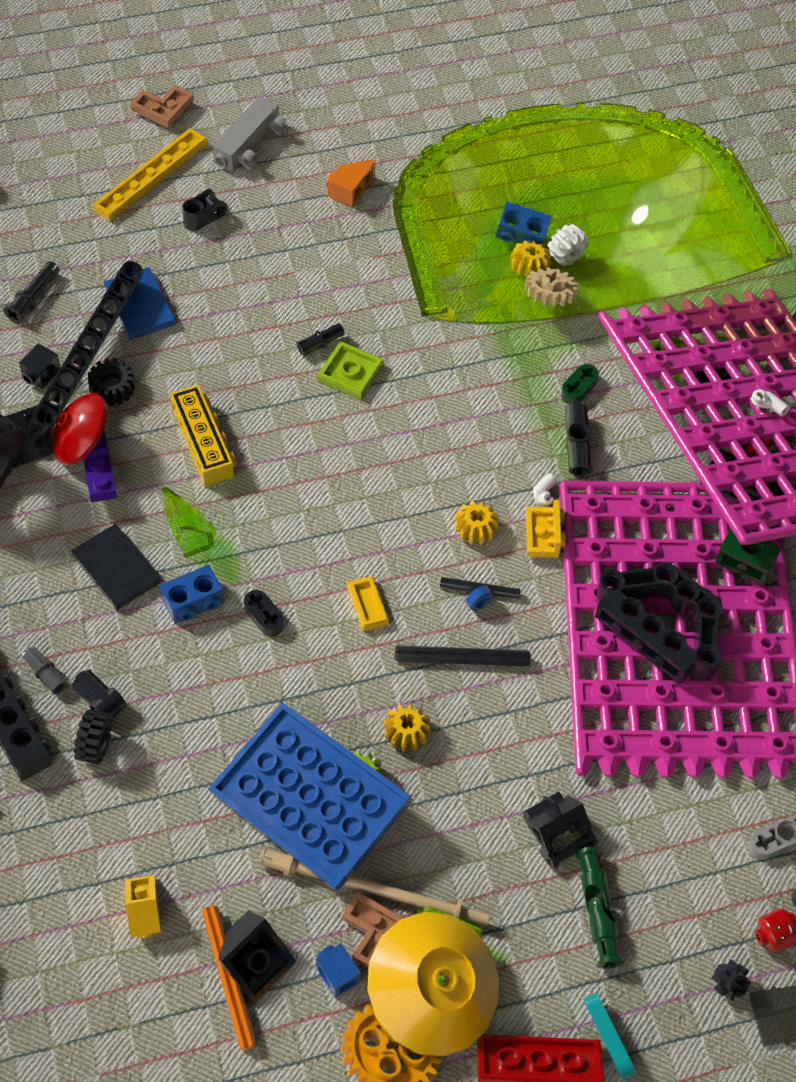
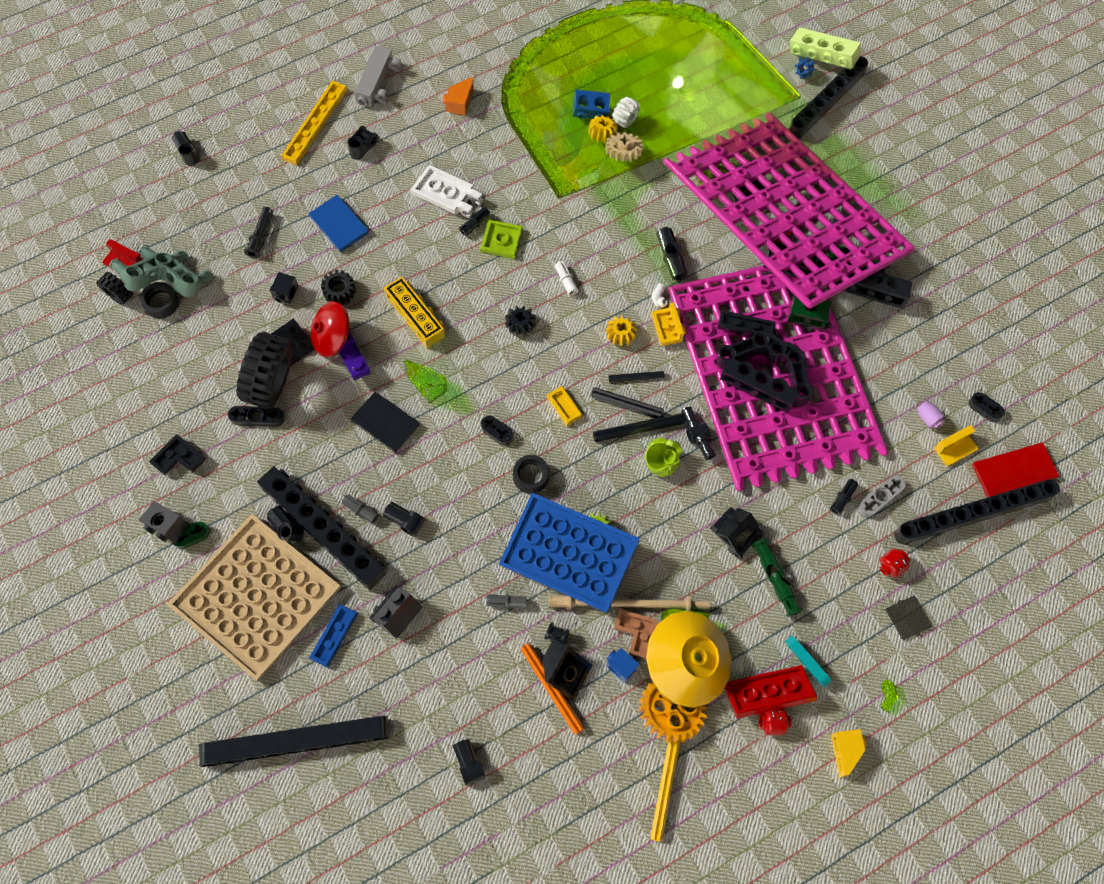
camera: 15 degrees left, 10 degrees up
(46, 816) = (395, 611): none -> black brick
(78, 1054) = (469, 765): none -> black piece
(93, 737) = (411, 549): black tyre -> none
(124, 284) = (313, 274): black beam -> none
(142, 906) = (480, 656): yellow slope -> none
(164, 109) = (308, 70): nougat plate -> none
(189, 588) = (441, 426): blue brick -> none
(203, 842) = (506, 601): none -> dark grey axle
(258, 903) = (556, 634): none -> black bush
(291, 661) = (530, 460): none -> black tyre
(295, 294) = (446, 191): none -> white tile
(341, 478) = (513, 323): none -> black gear
(407, 736) = (615, 494): yellow gear -> none
(422, 439) = (566, 278): none -> white axle
(456, 619) = (627, 403): none -> black axle
(479, 598) = (639, 384): blue tile -> none
(483, 700) = (663, 456): none -> lime hair
(544, 683) = (698, 433): none -> black pin
(576, 381) = (658, 212): dark green beam -> none
(650, 551) = (744, 324): none -> black tile
(730, 820) = (844, 497): none -> black axle
(731, 980) = (874, 604): black gear -> none
(768, 400) = (795, 198): white arm -> none

